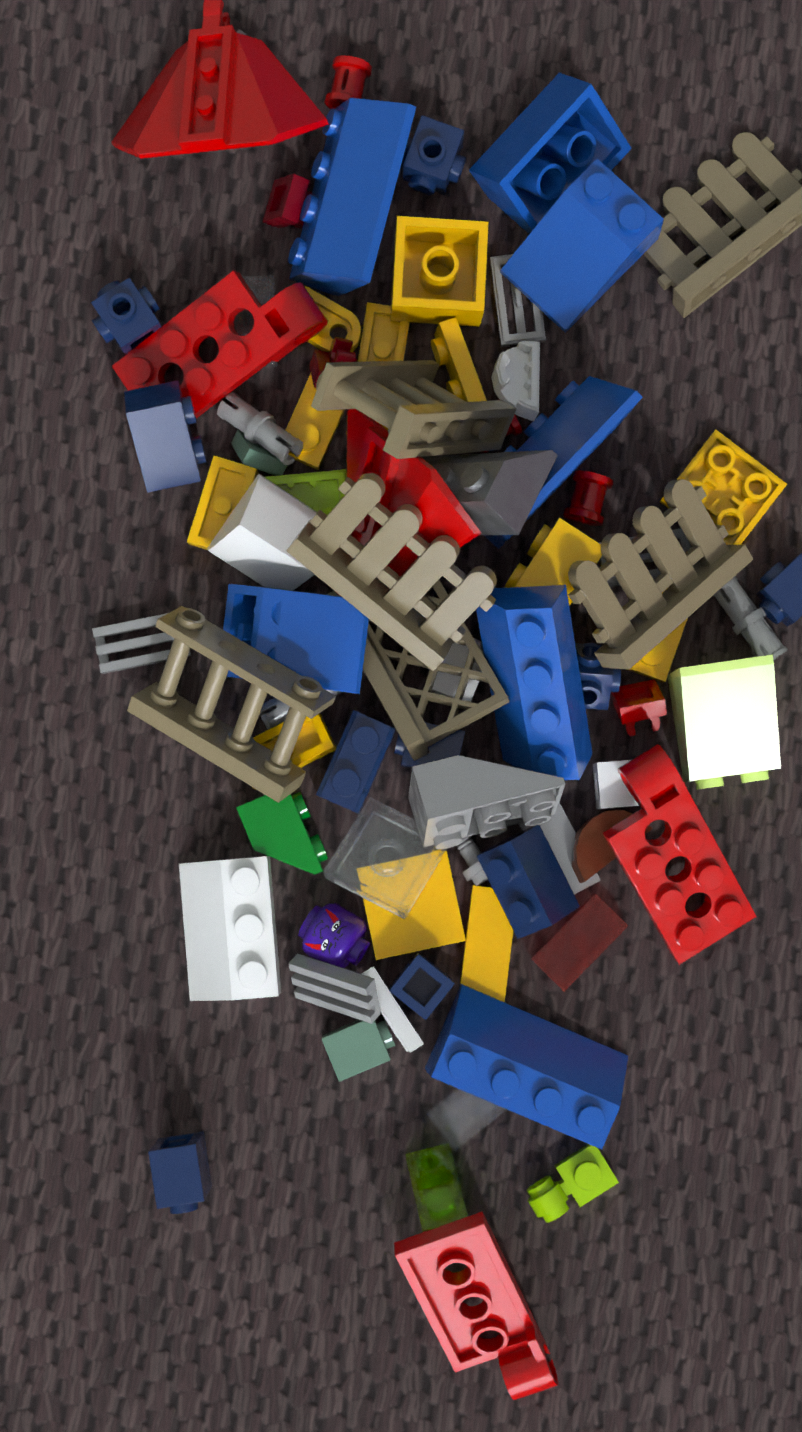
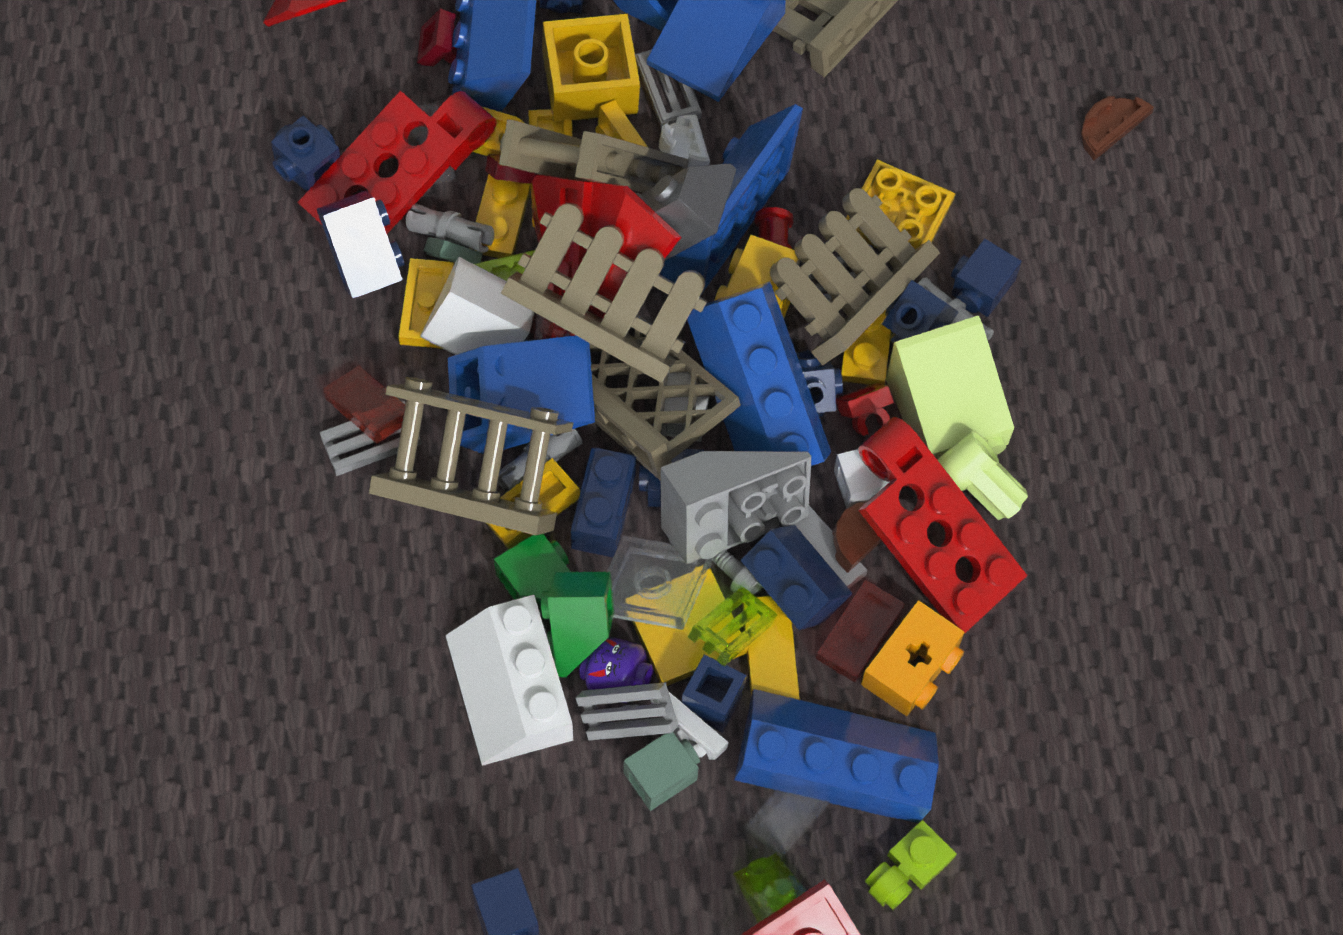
camera: 10 degrees left, 20 degrees down
(140, 607) = (366, 404): none -> clear red tile
(304, 889) = (579, 616): none -> green slope
(429, 944) = (717, 641): none -> clear neon green tile
(630, 959) = (921, 634): none -> light orange brick
(715, 630) = (917, 313): none -> dark blue brick
(734, 806) = (977, 468): none -> yellowish green piece

